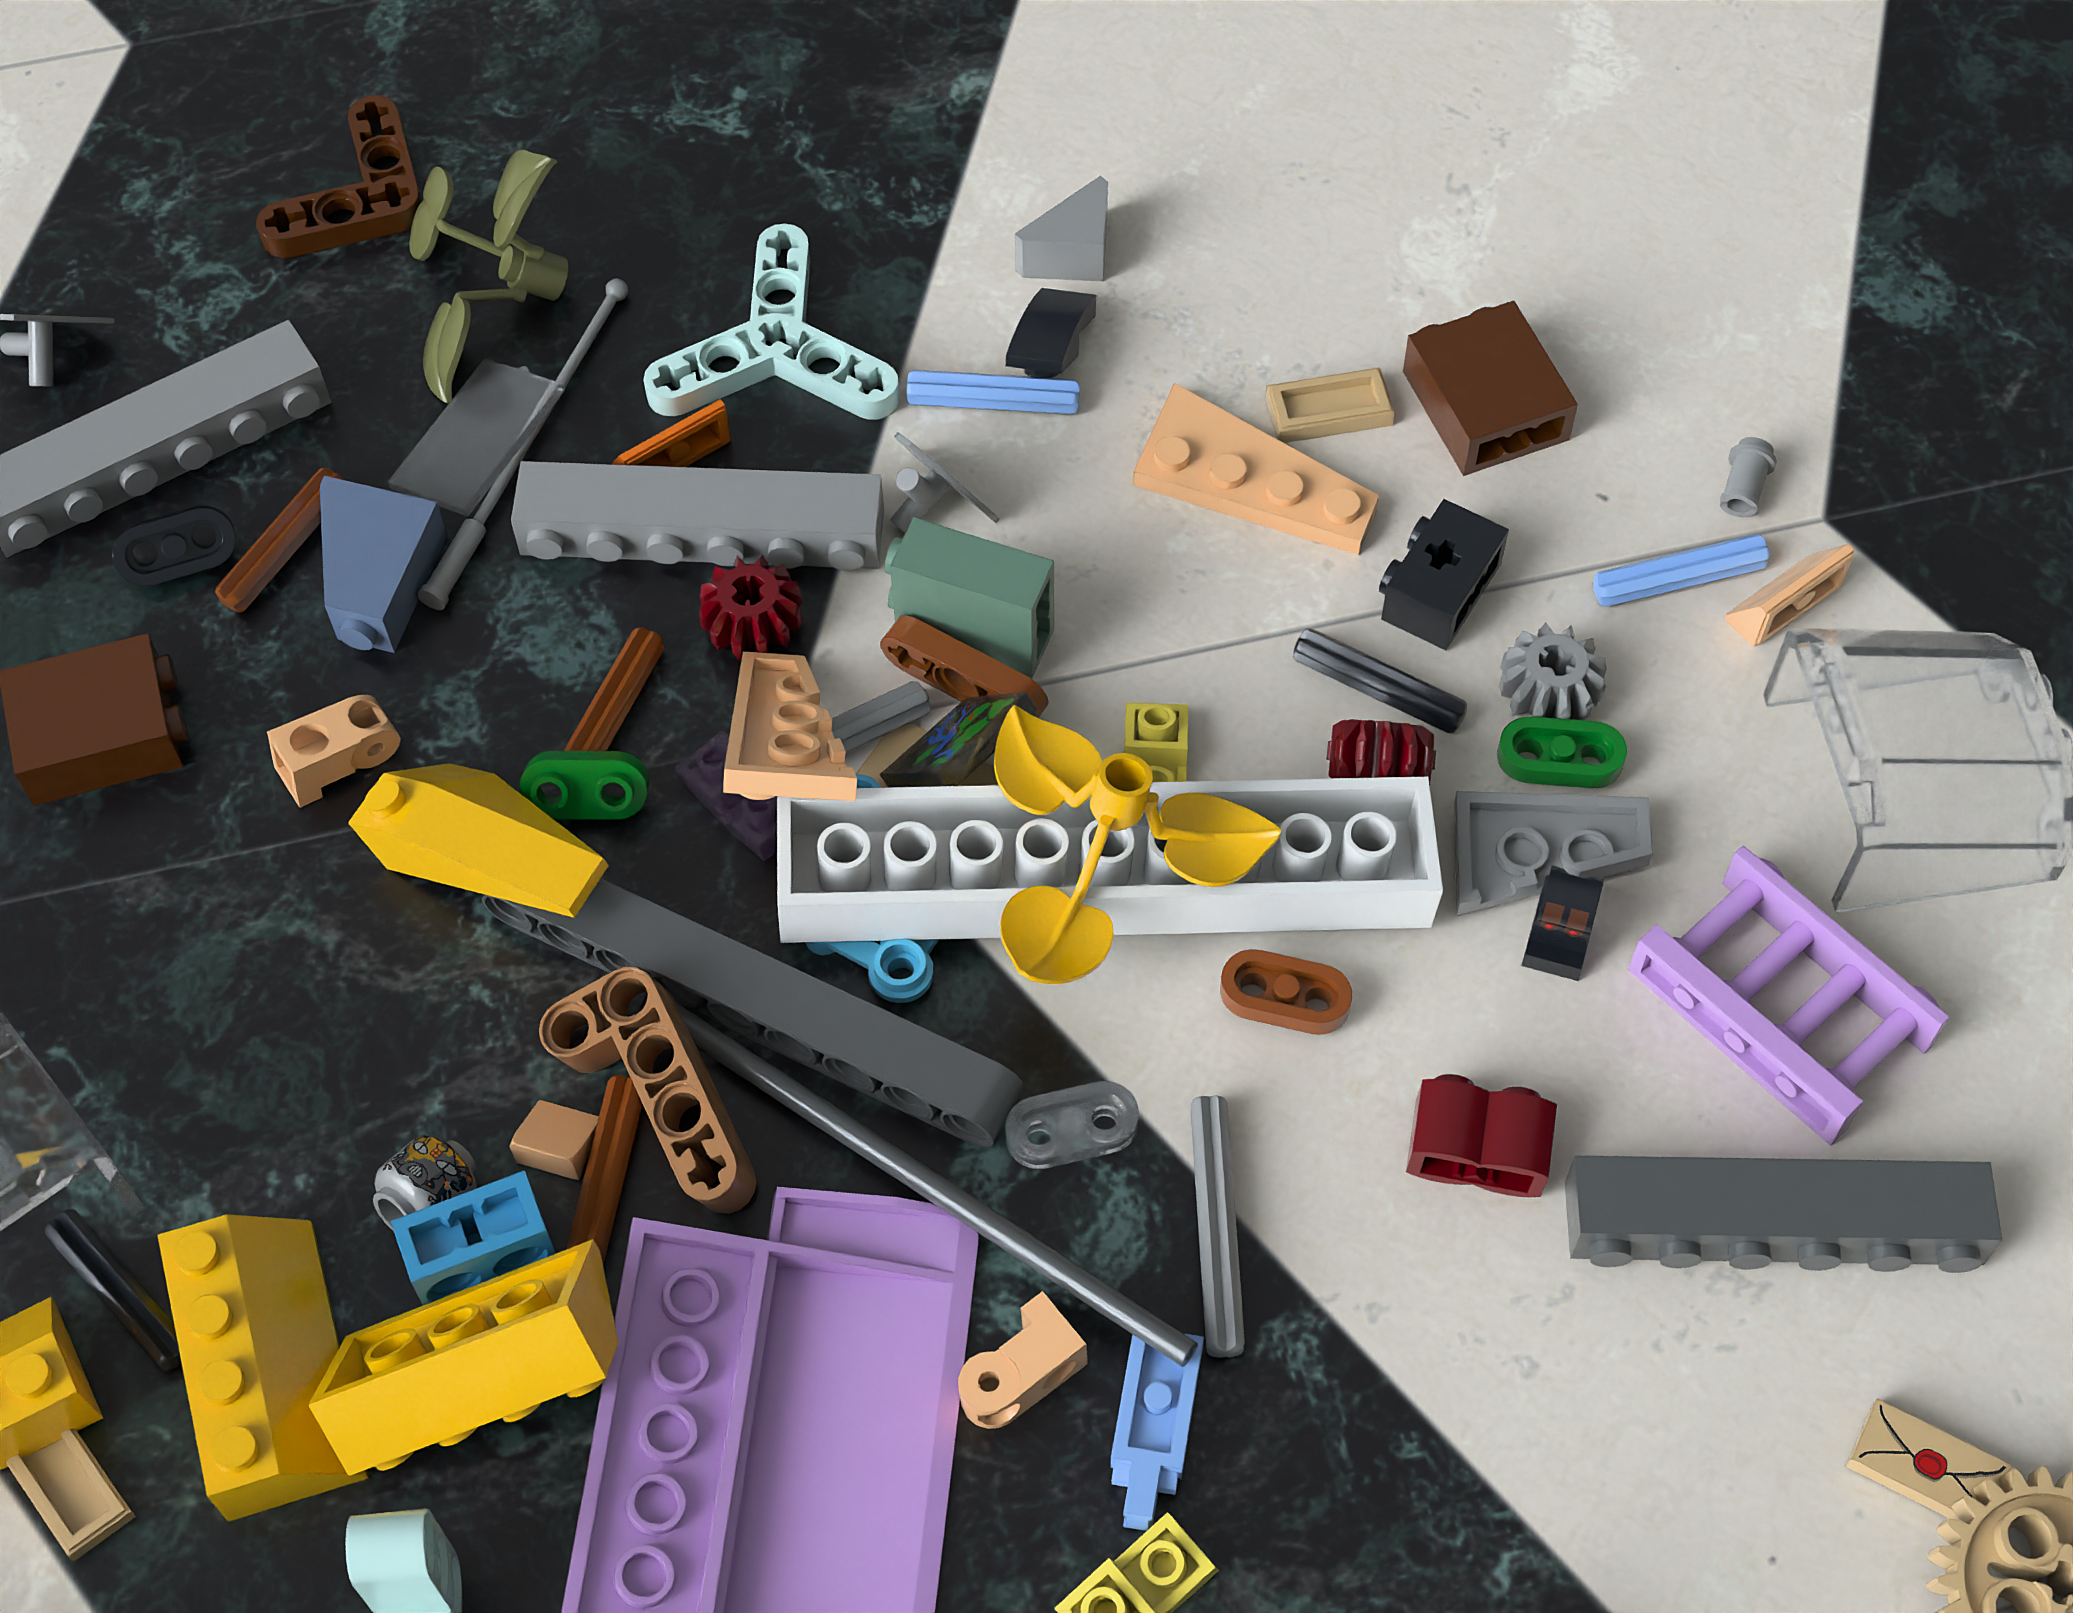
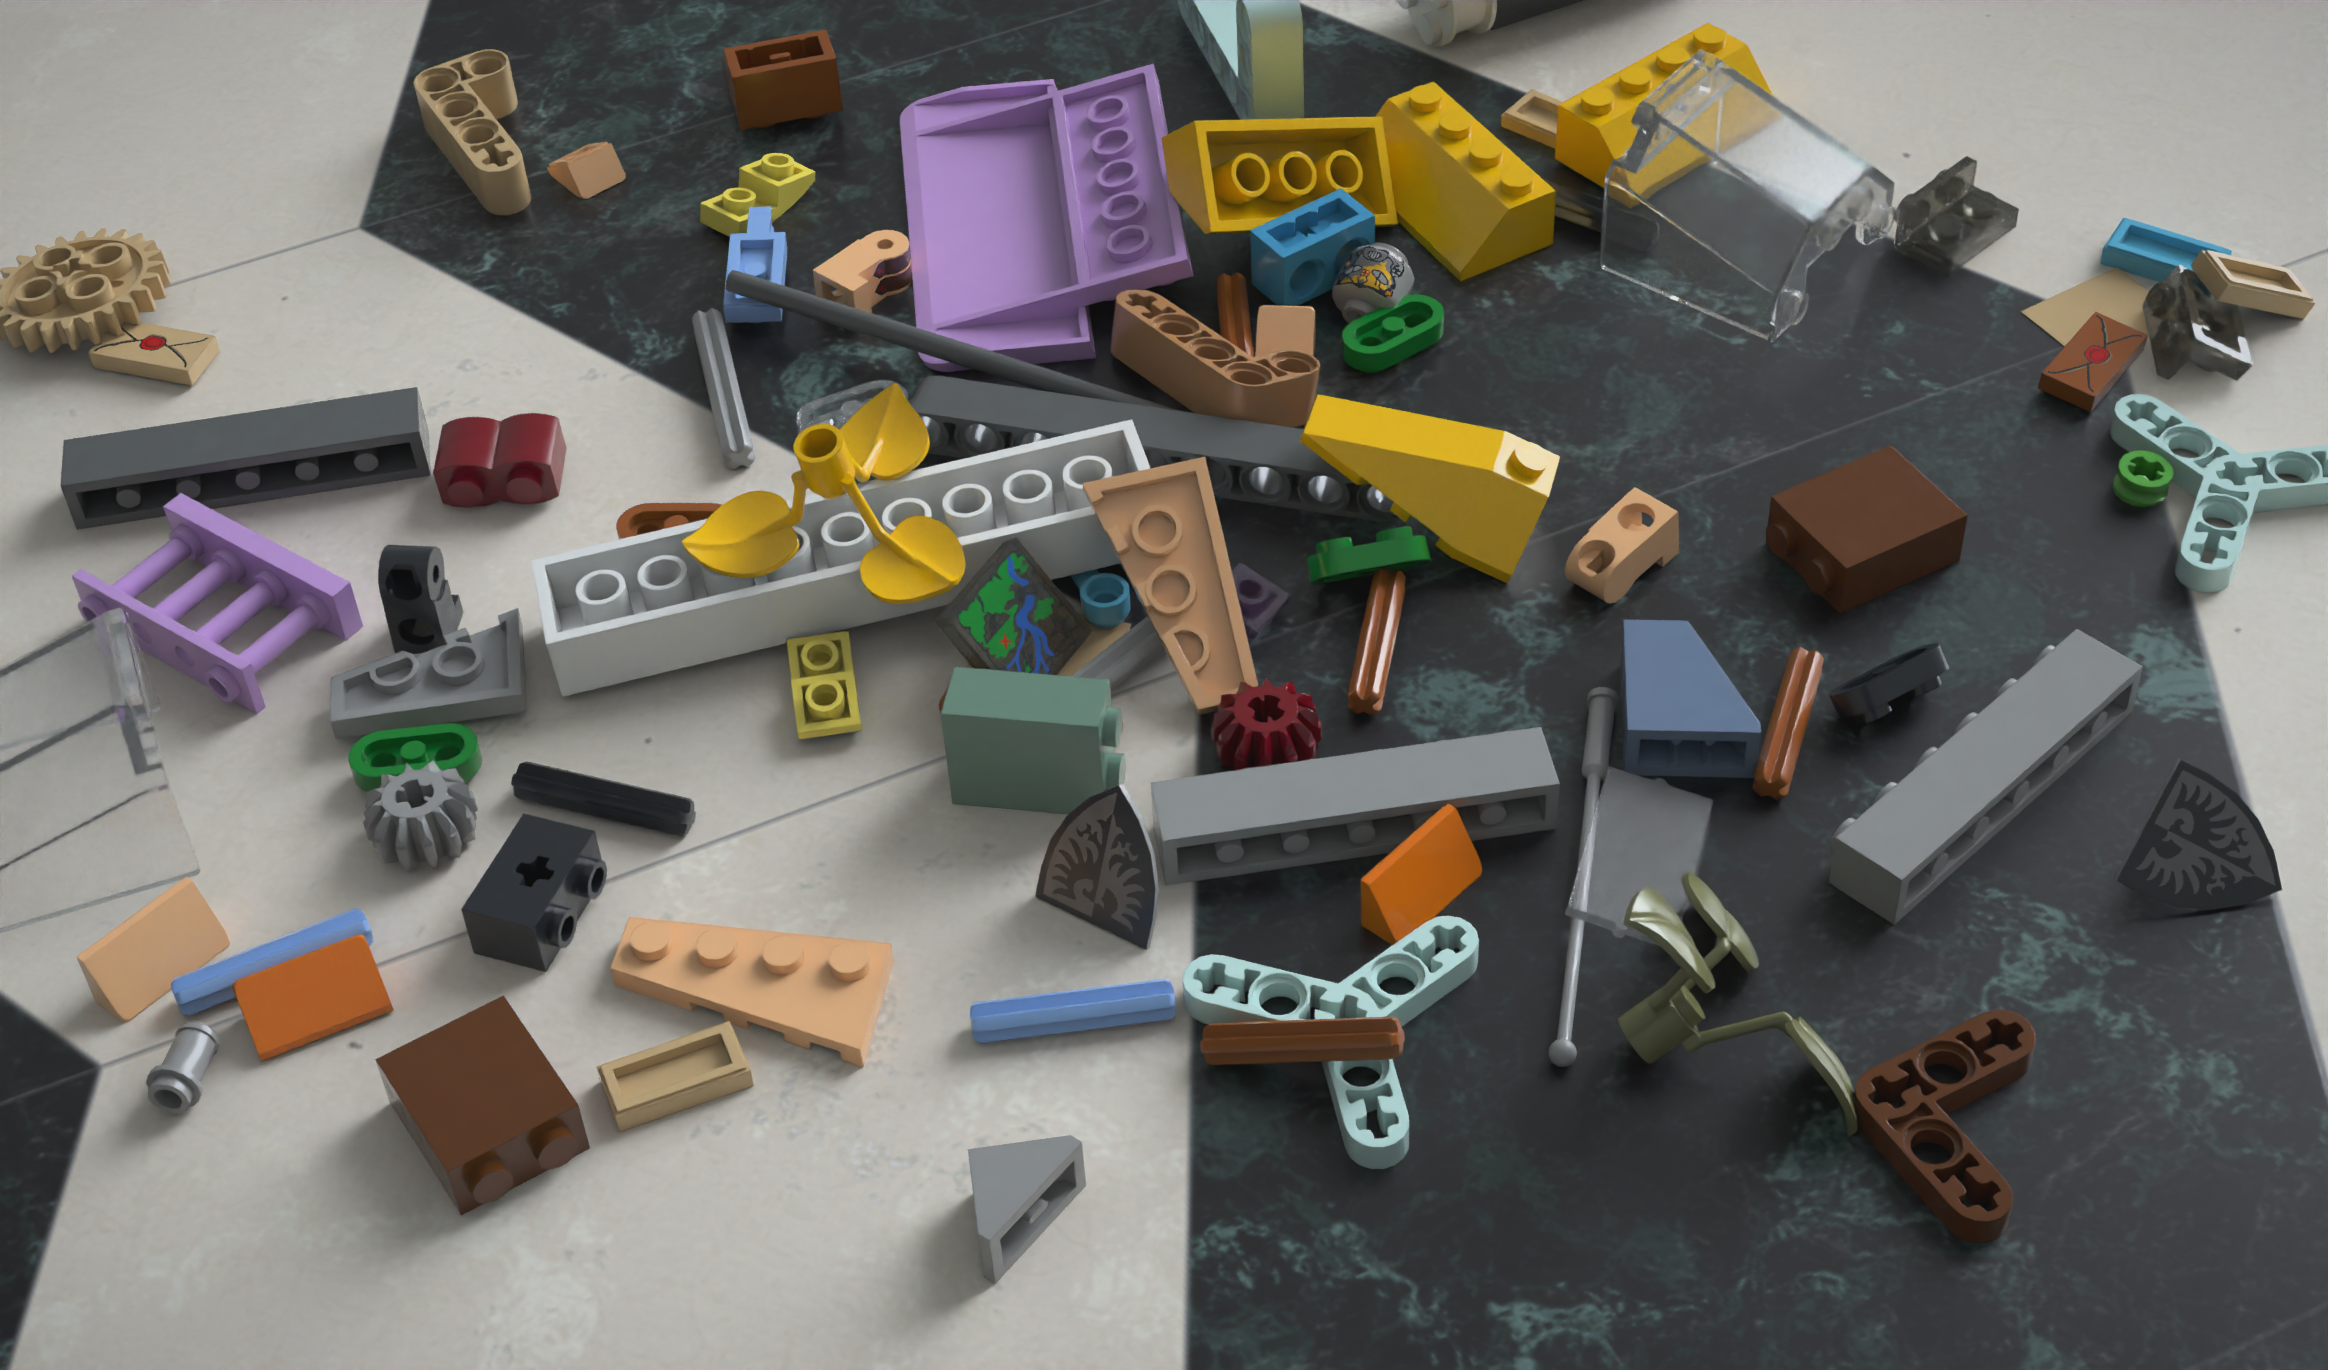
camera: 170 degrees right, 15 degrees down
(431, 1110) = (1392, 333): none -> green plate
(819, 303) = (1303, 1041): none -> dark orange axle
(1049, 332) = (1015, 1068): black slope -> none
(1380, 750) = (617, 678): dark red gear -> none
(1641, 526) = (312, 996): none -> orange slope

